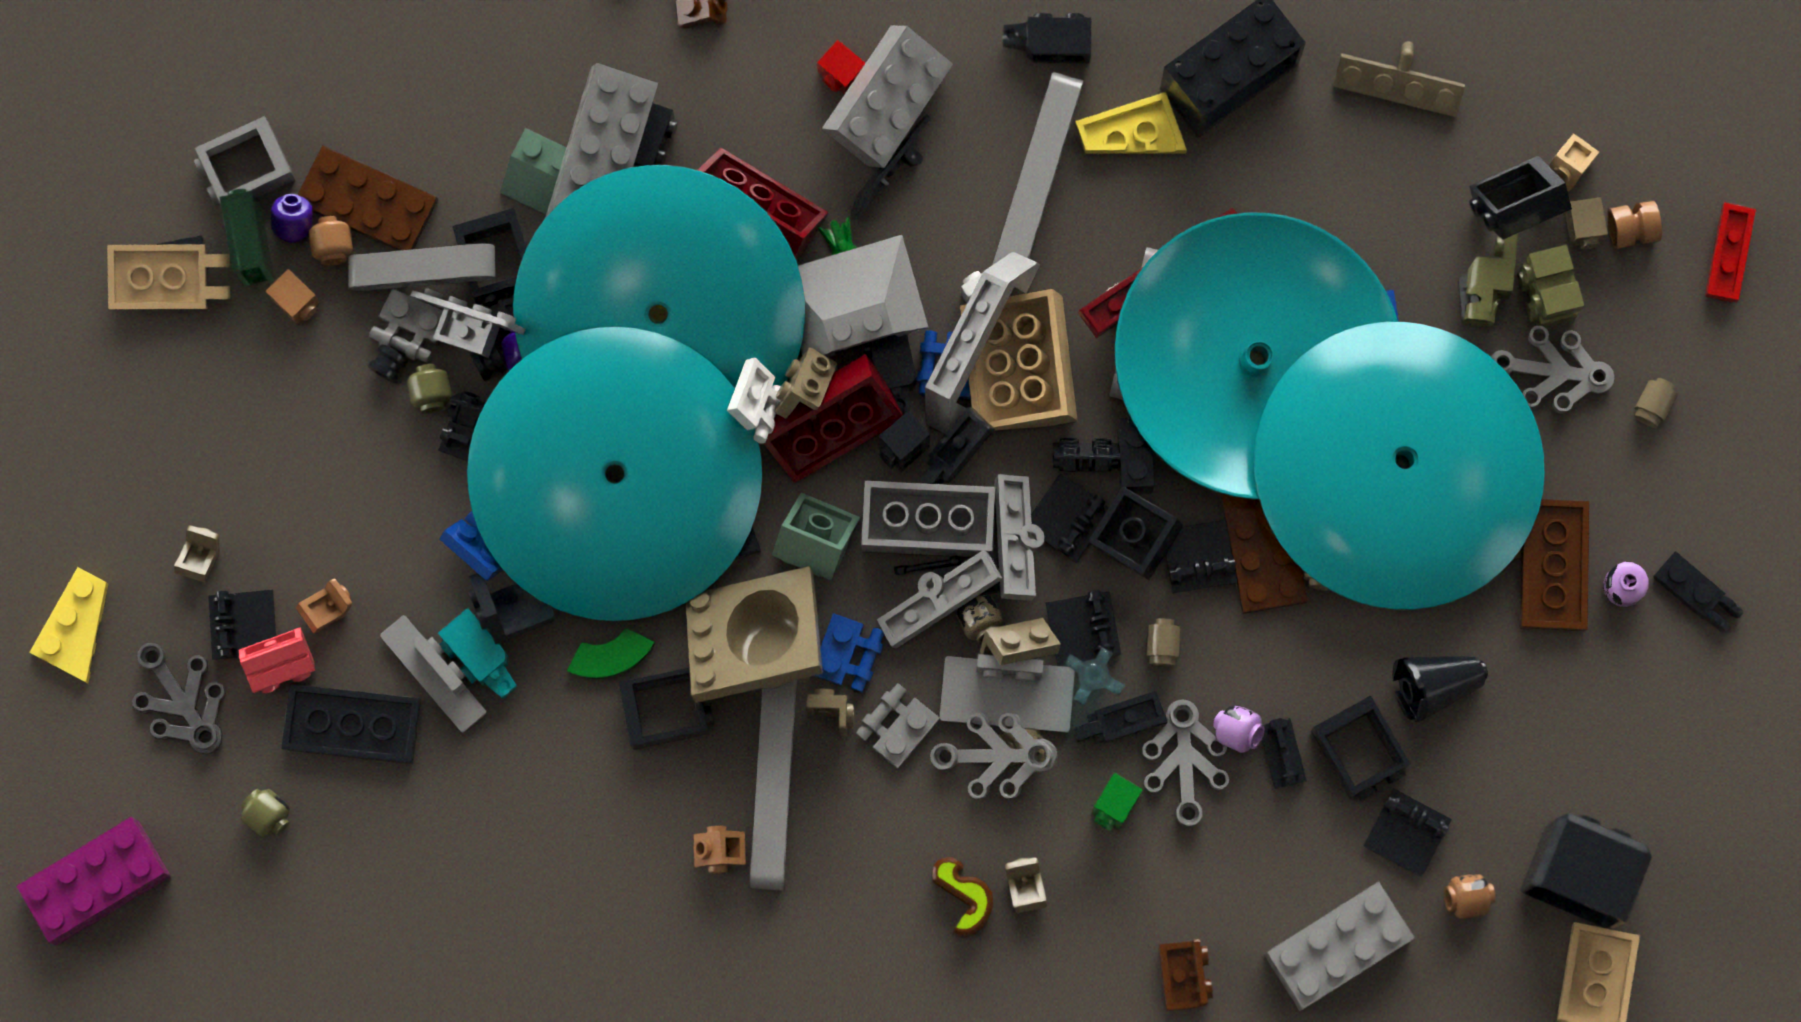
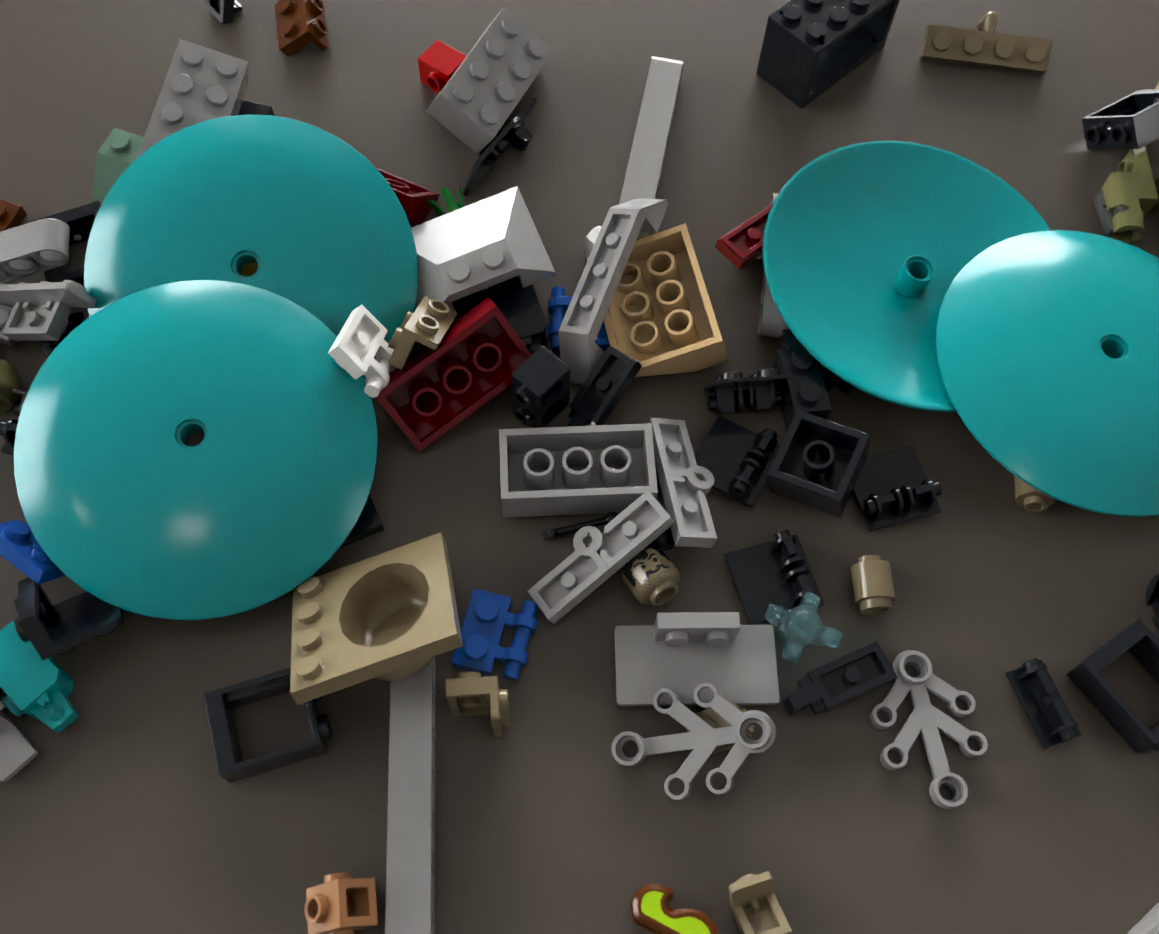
camera: 10 degrees left, 15 degrees down
(610, 658) = (200, 669): green tile -> none
(815, 536) = (445, 502): sand green slope -> none
(905, 732) = (575, 725): light grey plate -> none
(1020, 641) = (705, 594): dark tan bracket -> none
(1051, 38) = (647, 34): black hinge -> none
(1115, 802) = (860, 784): green brick -> none
(1133, 129) = (739, 99): light yellow wing -> none
(1238, 728) = (987, 676): lavender head -> none
(1263, 568) = (974, 490): reddish brown plate -> none

